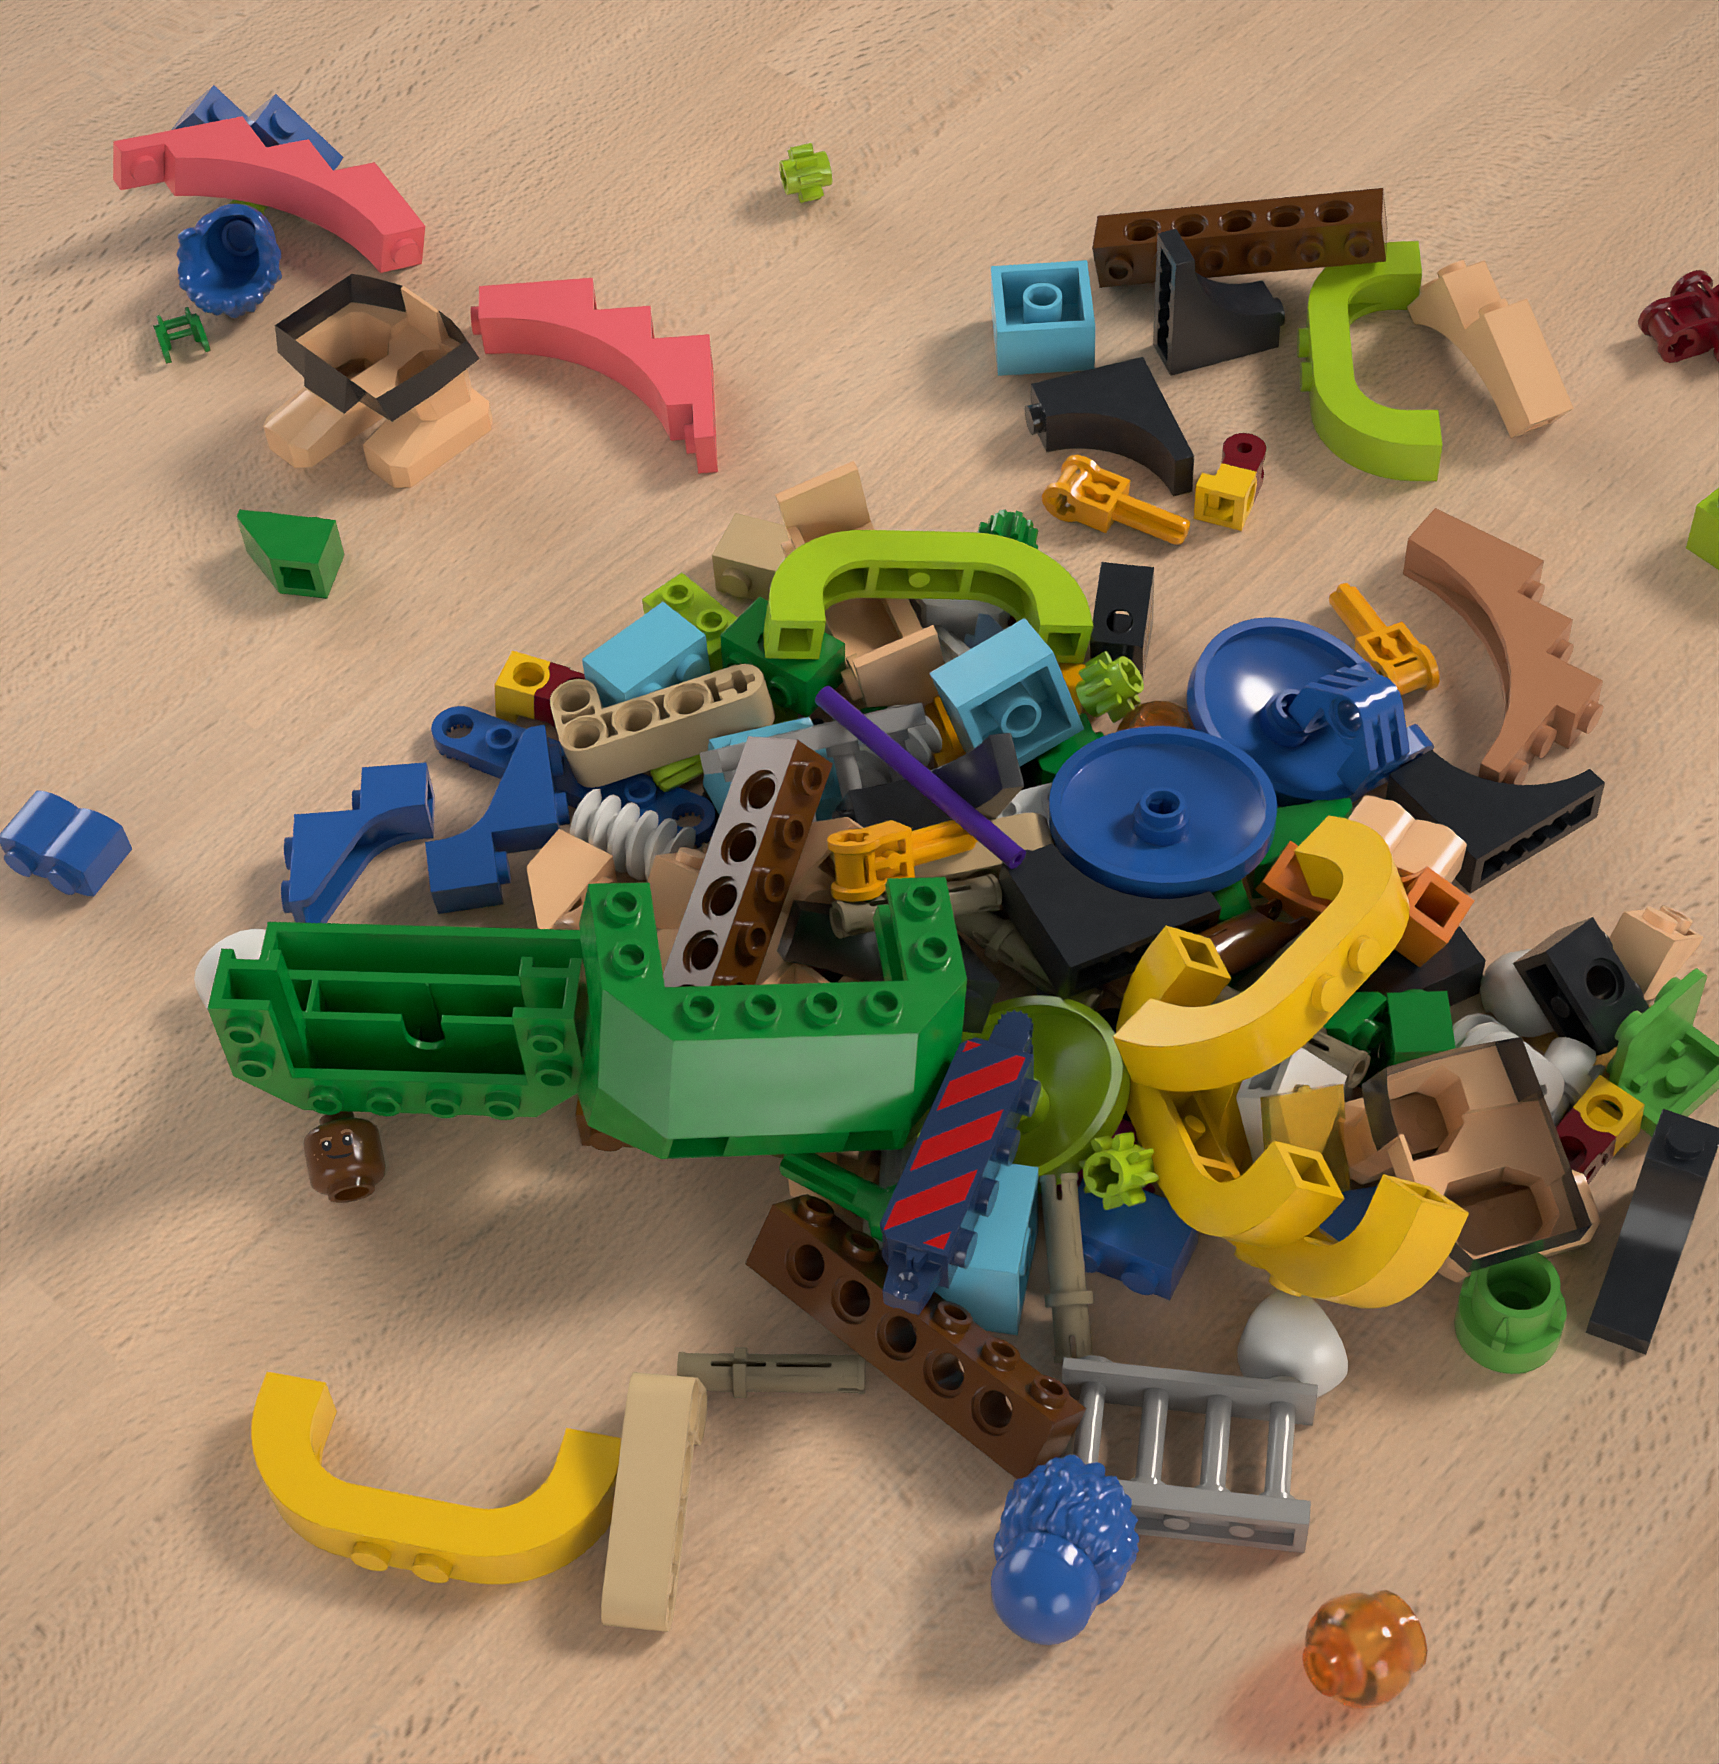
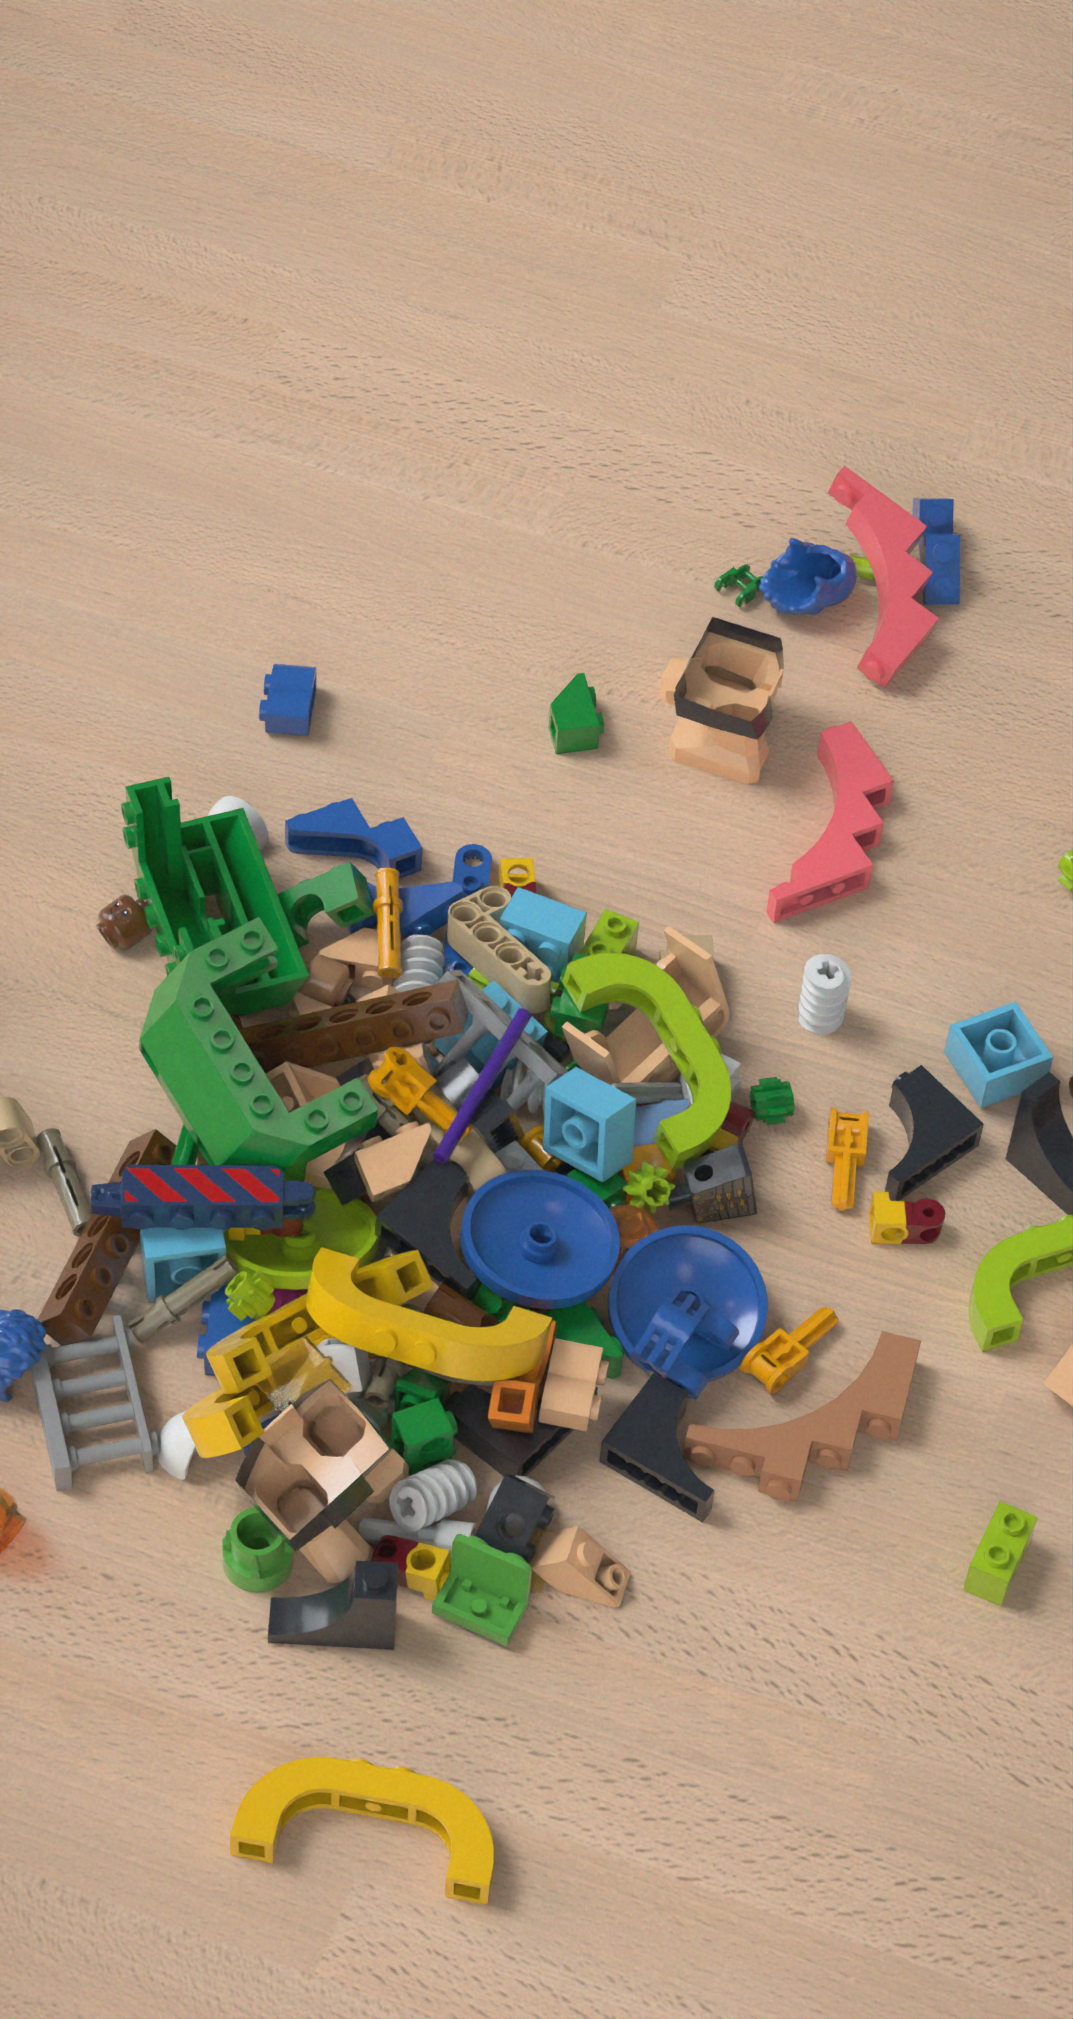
camera: 60 degrees right, 0 degrees up
(469, 861) = (339, 892): none -> green arch
(559, 829) = (388, 910): none -> light orange pin
(881, 437) = (824, 994): none -> white piece
(991, 917) = (391, 1163): none -> light nougat slope

